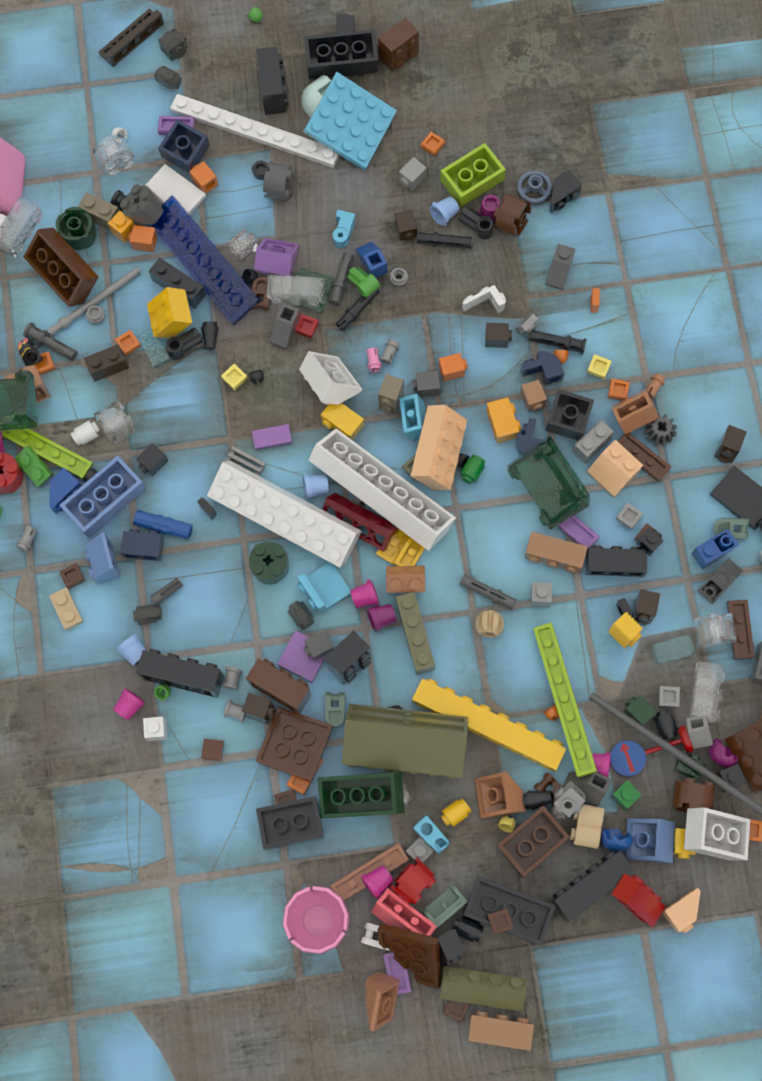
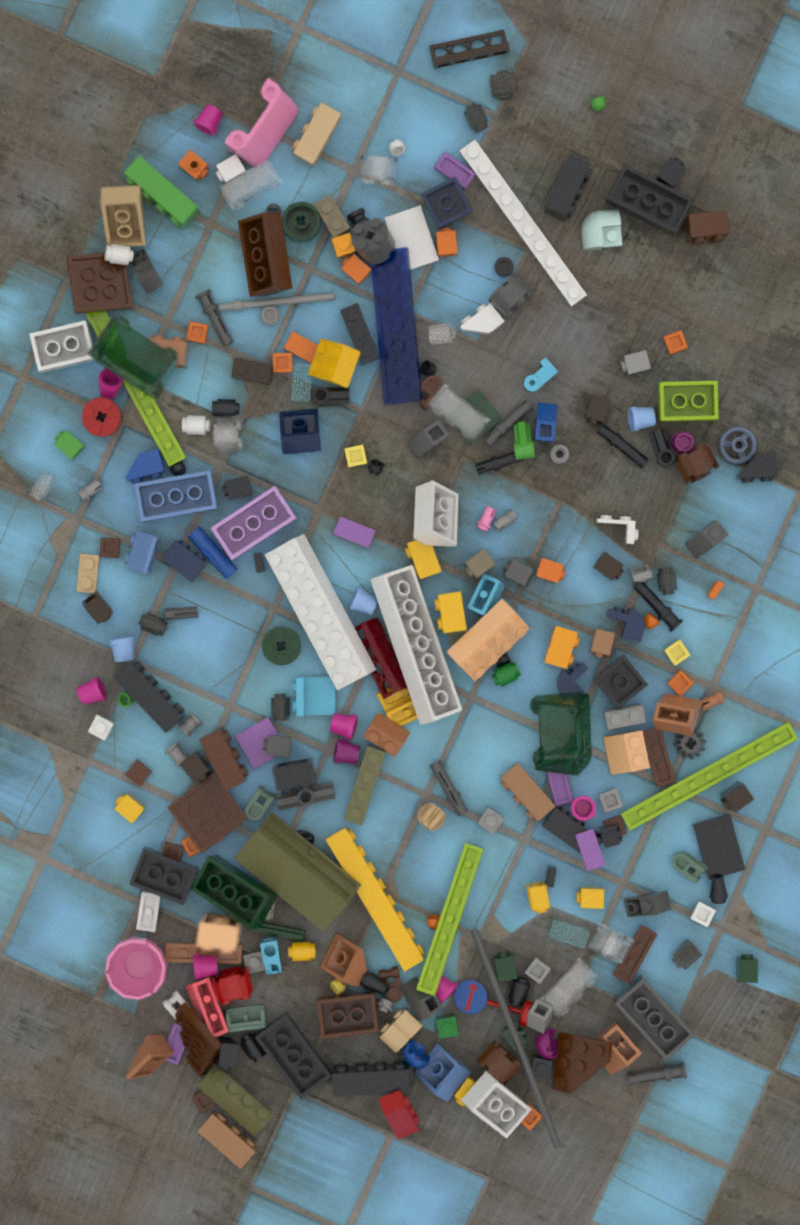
camera: 30 degrees right, 15 degrees up
(29, 352) = (190, 317): black animal -> none
(33, 466) = (133, 428): bright green plate -> none
(48, 161) = (316, 134): none -> tan brick
(91, 629) = (97, 607): none -> dark brown brick
(100, 402) = (225, 407): none -> black brick
(135, 322) = (301, 347): none -> orange tile
(176, 386) = (300, 431): none -> dark blue slope
(182, 478) = (253, 523): none -> lavender brick
(210, 333) = (359, 402): black cone -> none
(222, 784) = (129, 807): none -> yellow brick
(235, 450) = (308, 526): light grey tile -> none
(271, 216) = (483, 322): none -> white slope
(276, 257) = (463, 365): medium lavender slope -> none
(297, 866) = (148, 912): none -> white plate
(306, 326) = (449, 447): red tile -> none
(350, 121) = (613, 275): medium azure plate -> none
(361, 684) = (318, 793): none -> dark grey piece
(370, 836) = (219, 932): none -> light nougat brick
(393, 445) = (451, 612): none -> yellow brick
(421, 810) = (280, 931): none -> dark green axle
(500, 921) = (279, 1061): reddish brown tile -> none
(551, 317) = (666, 580): none -> clear smoke brick
(569, 799) = (398, 1002): light grey brick -> none
(611, 533) = (583, 808): none -> dark pink piece
(641, 562) = (590, 849): none -> medium lavender tile
(645, 607) = (567, 888): dark brown brick -> none
(670, 605) = (590, 897): none -> yellow brick
(683, 911) = (431, 1142): light nougat slope -> none
(694, 447) = (709, 776): none -> lime plate
(714, 549) = (661, 875): blue slope -> none

